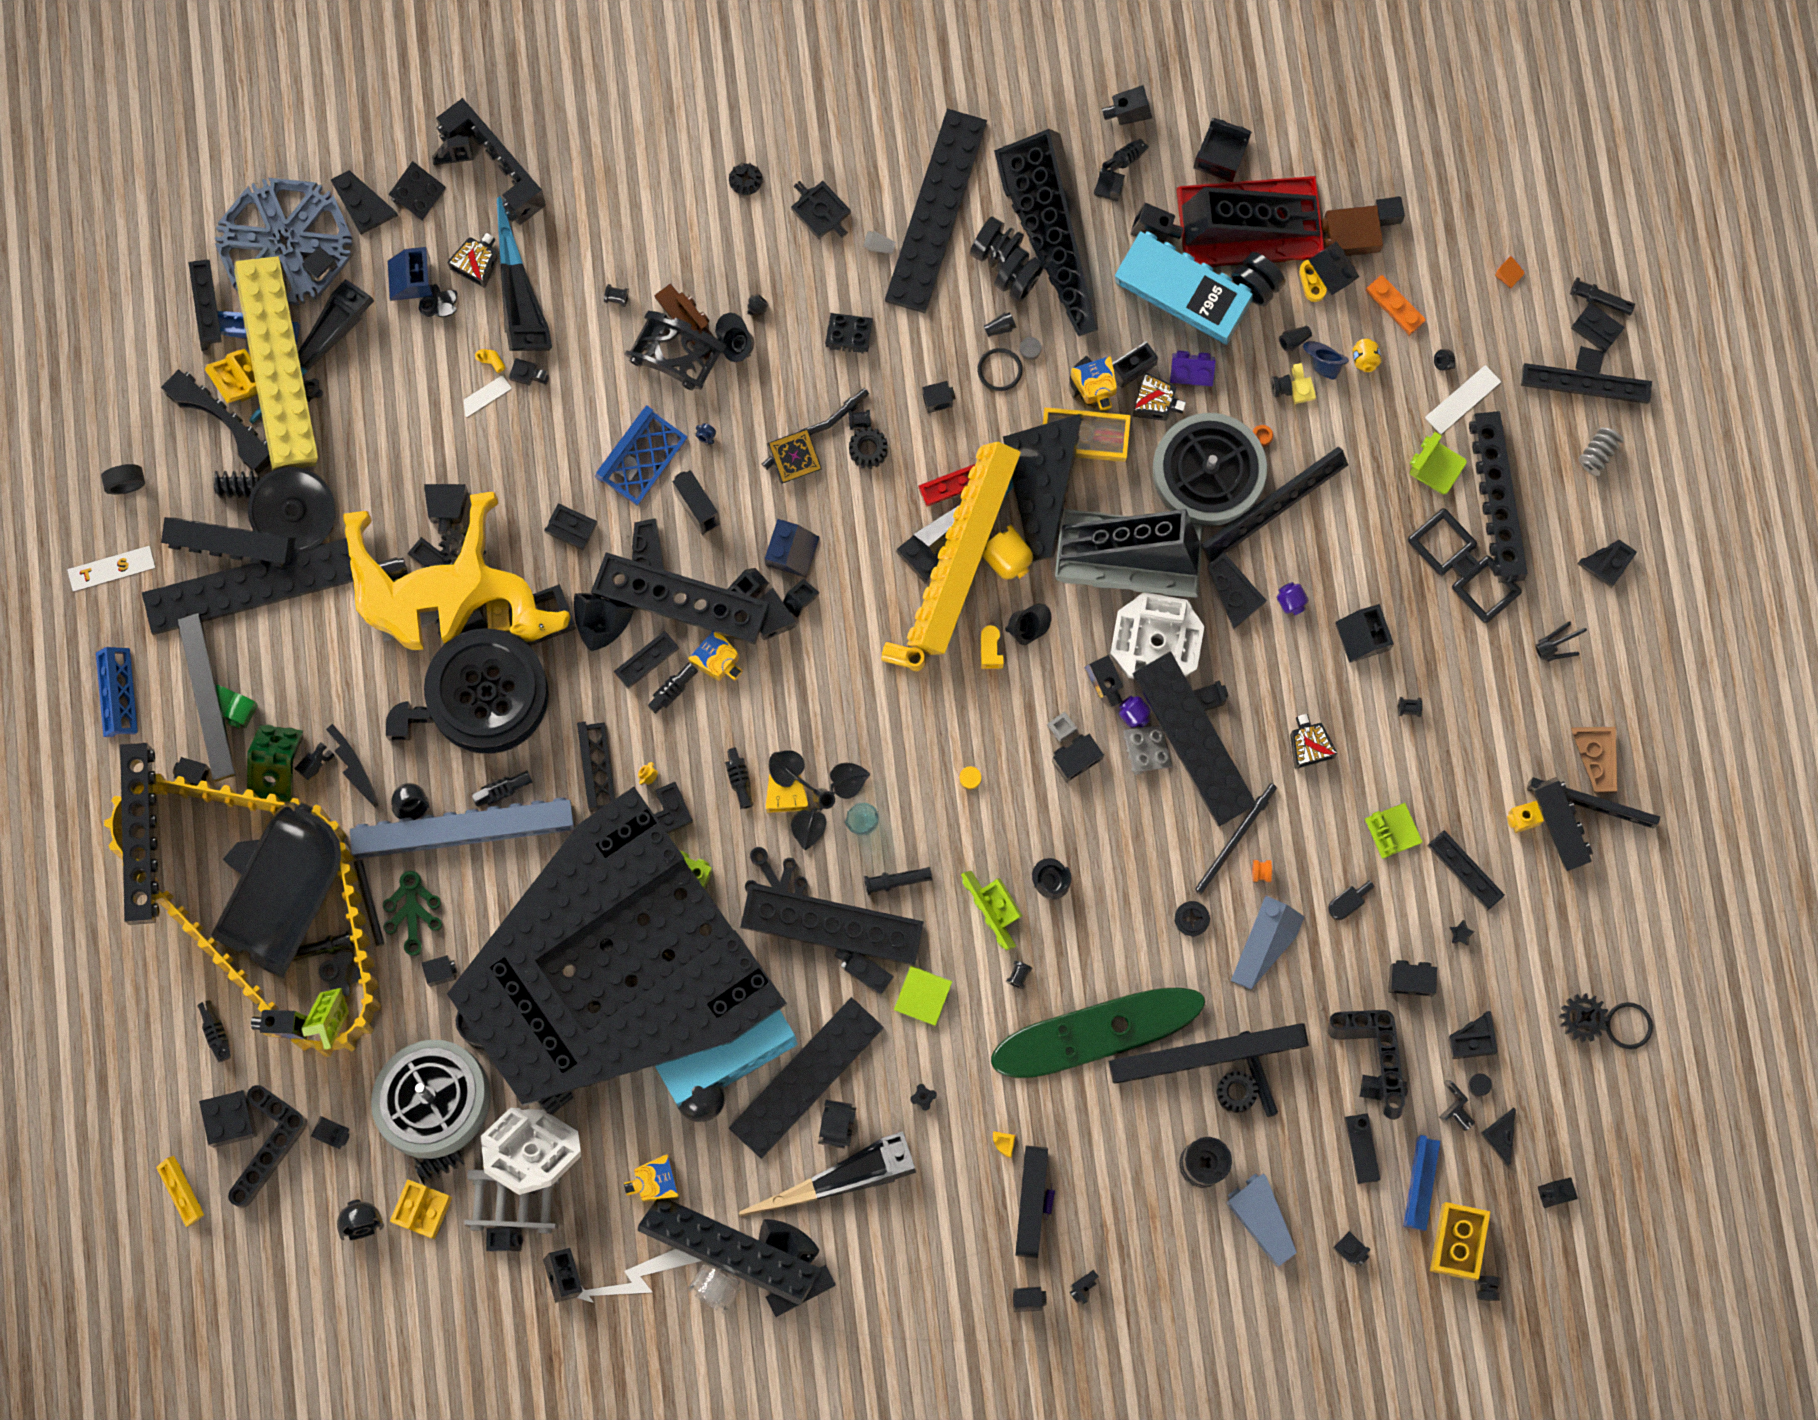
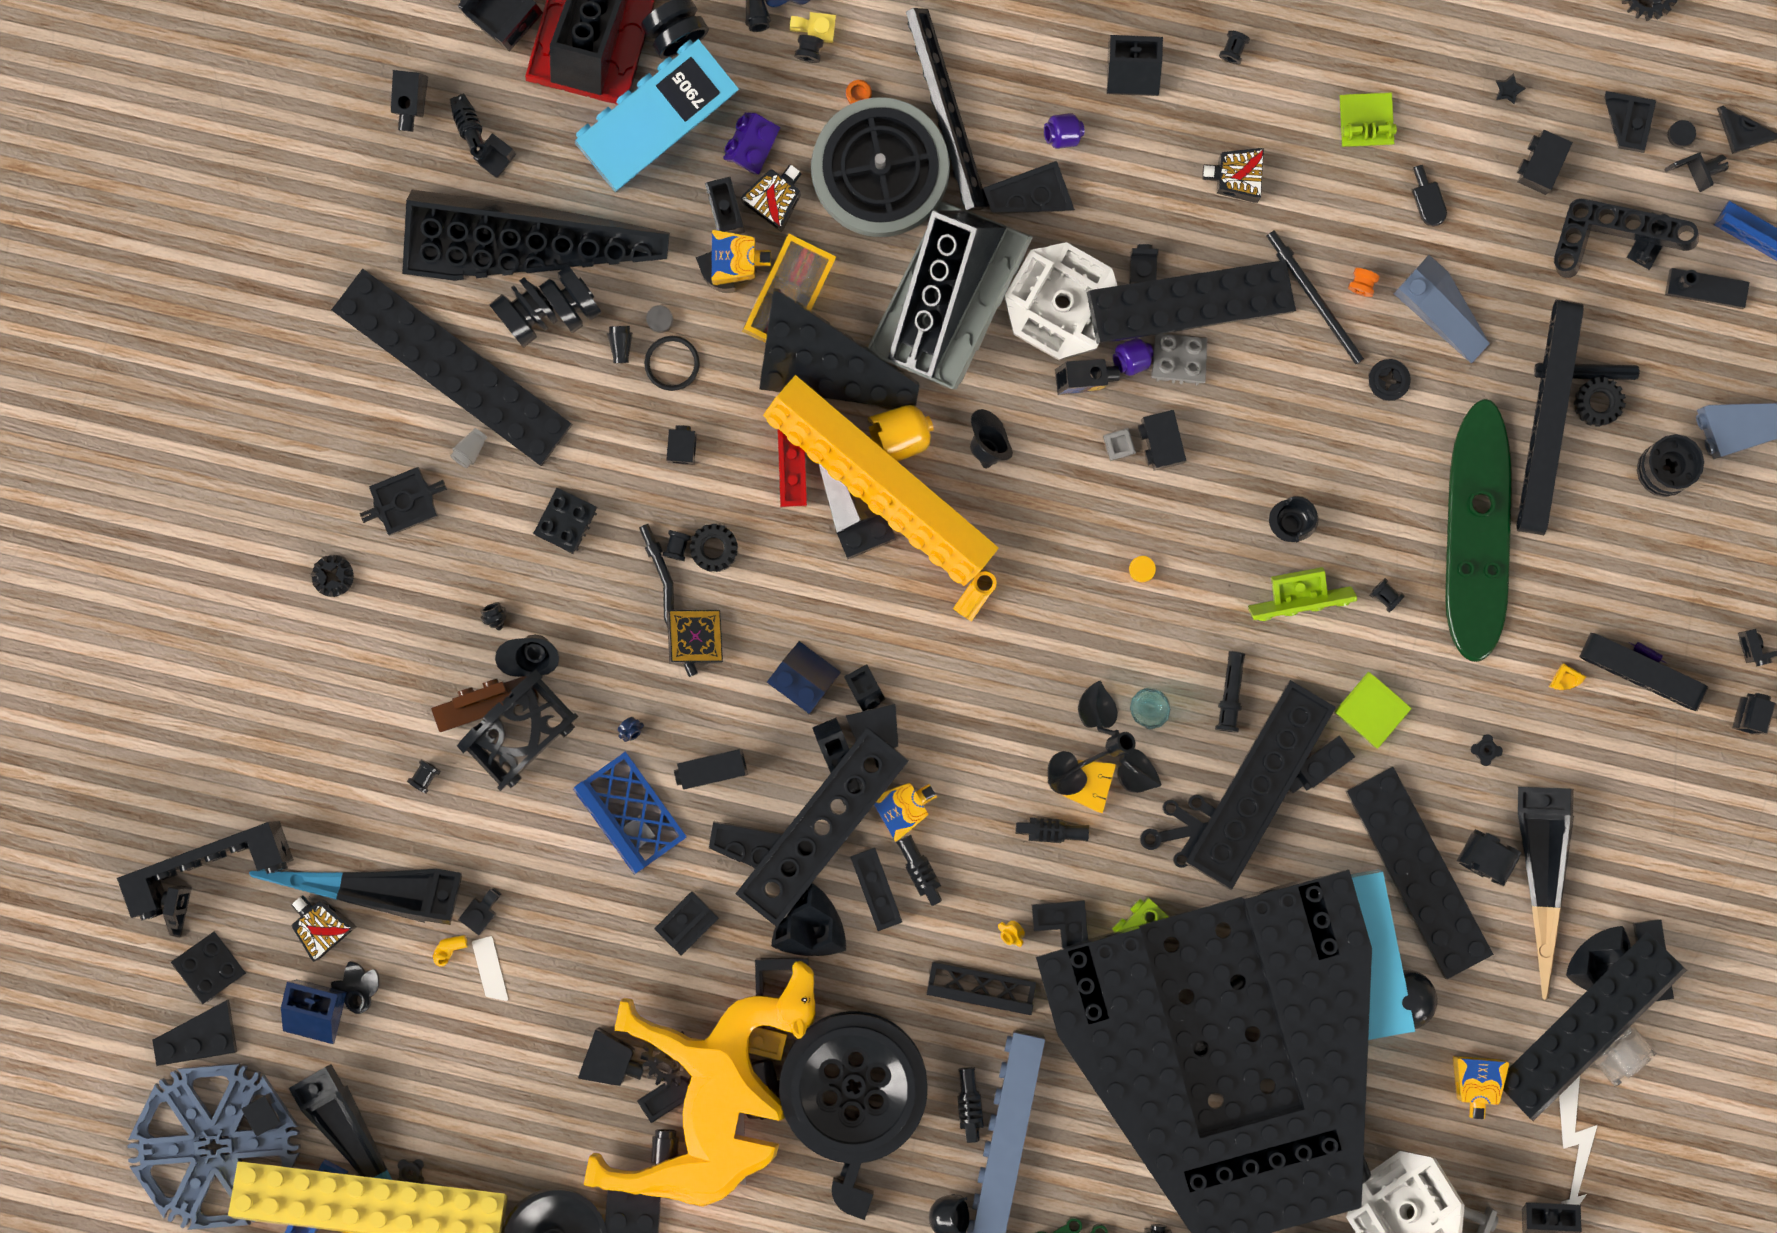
camera: 65 degrees left, 10 degrees up
(989, 639) = (1000, 494): yellow leg -> none
(1156, 222) = (564, 120): black torso -> none
(1466, 870) = (1438, 56): black tile -> none

